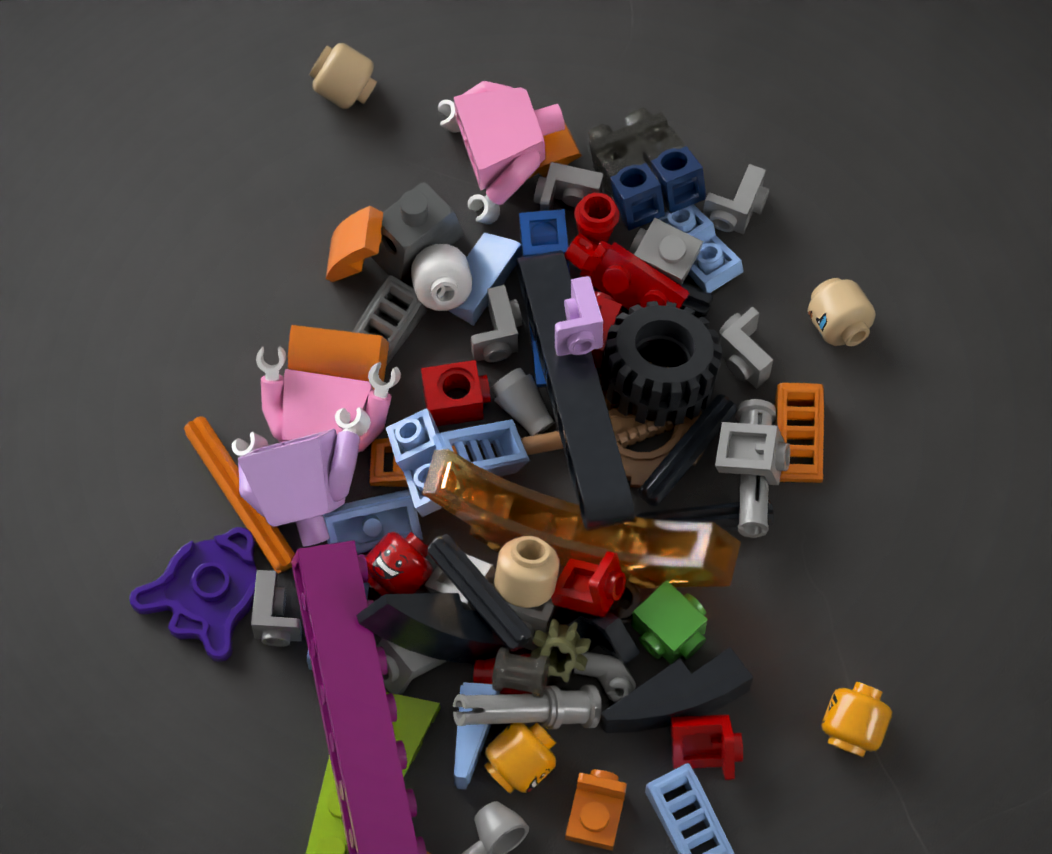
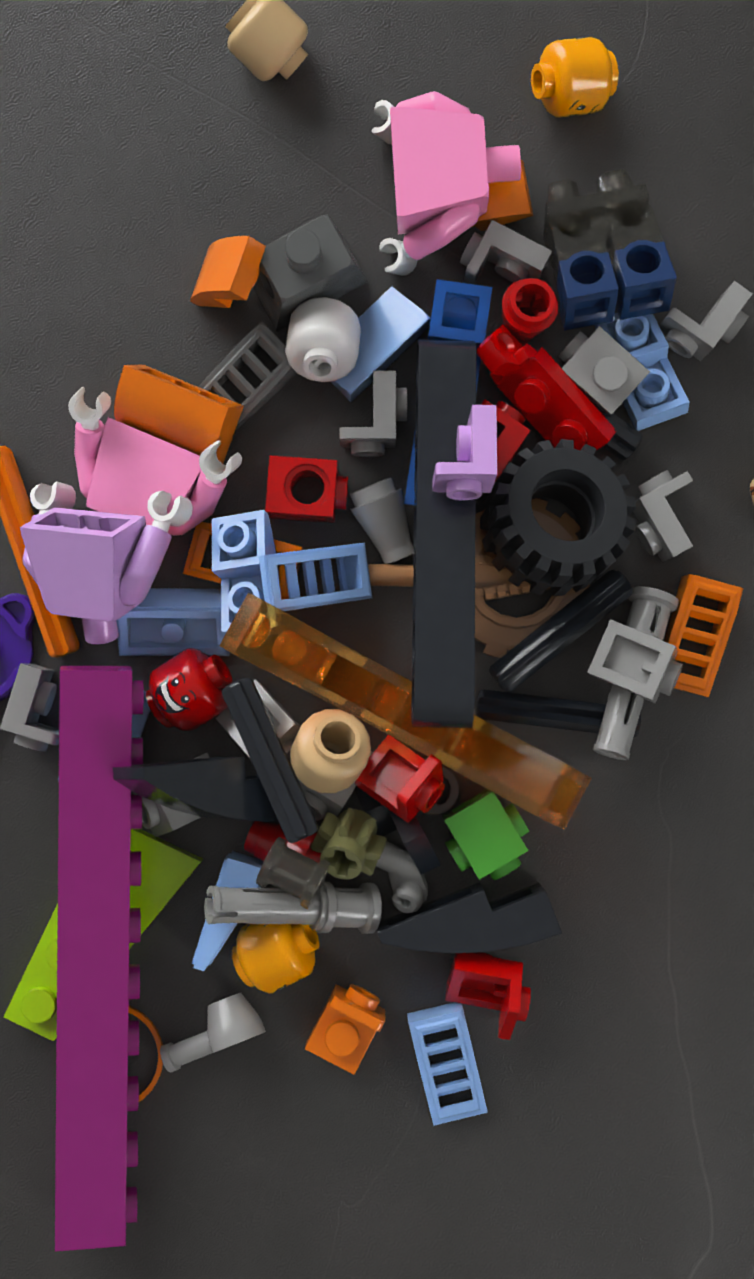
camera: 15 degrees right, 20 degrees up
(587, 52) = (575, 76): none -> light orange head
(856, 719) = (667, 1001): light orange head -> none

